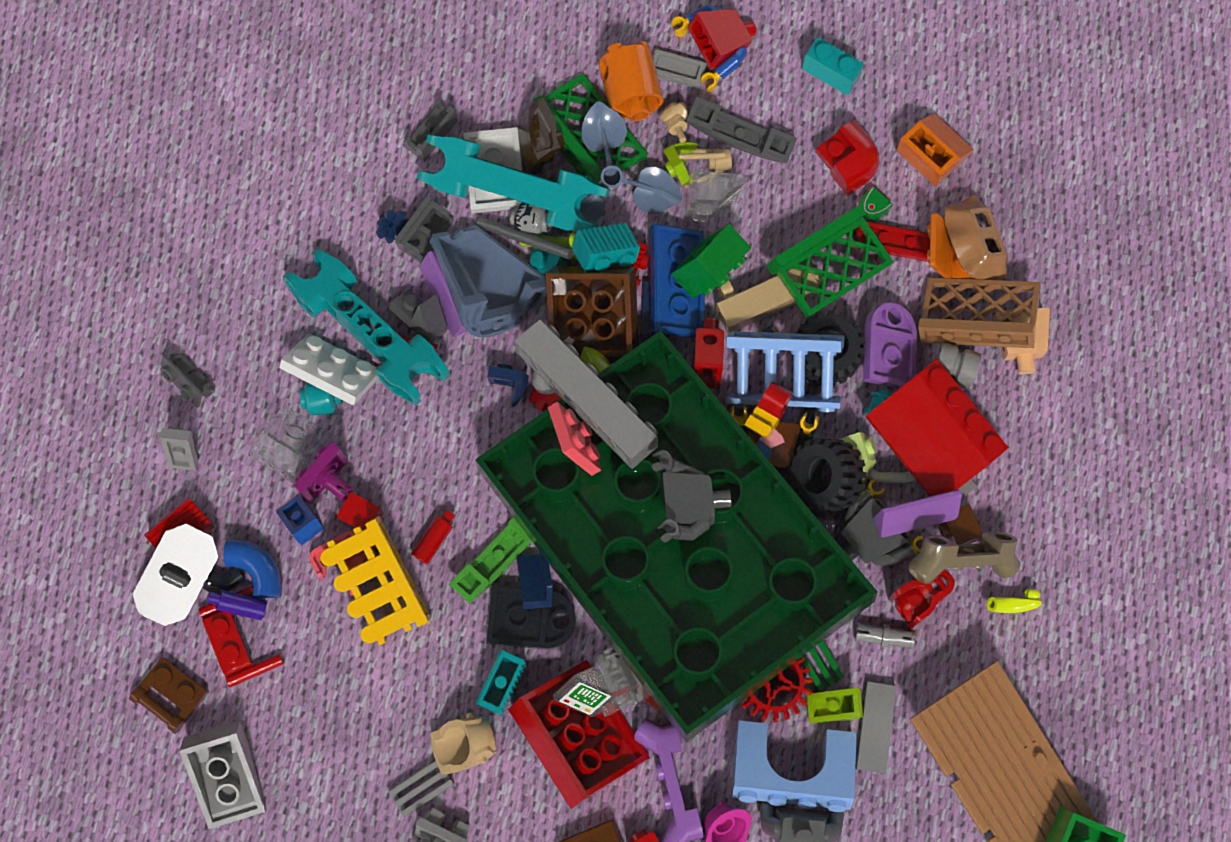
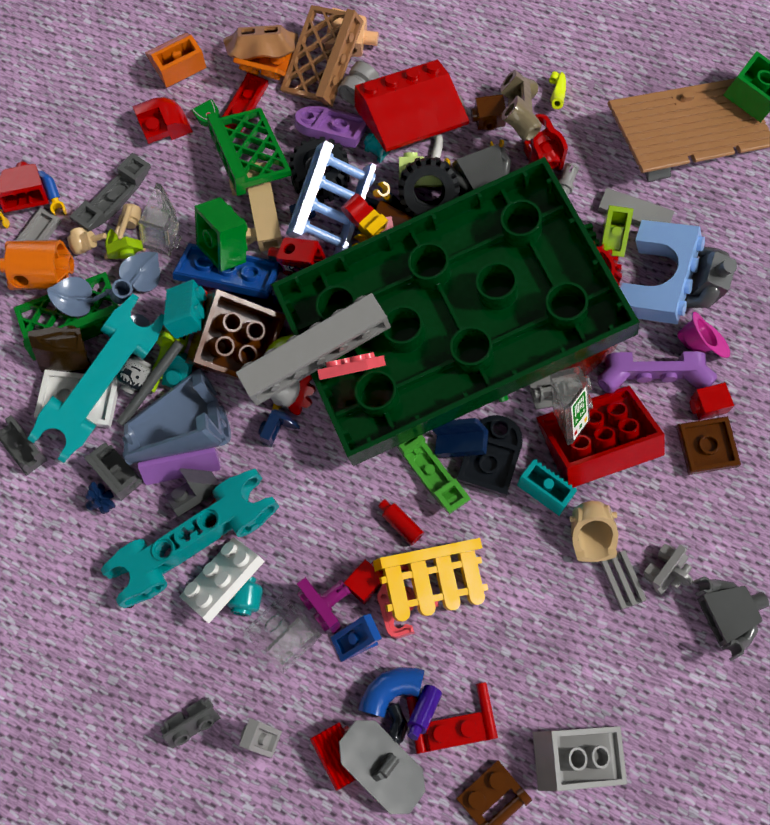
camera: 75 degrees left, 5 degrees down
(687, 499) = (433, 281): dark grey torso -> none
(832, 66) = (79, 112): teal brick -> none
(918, 513) = (478, 129): medium lavender slope -> none

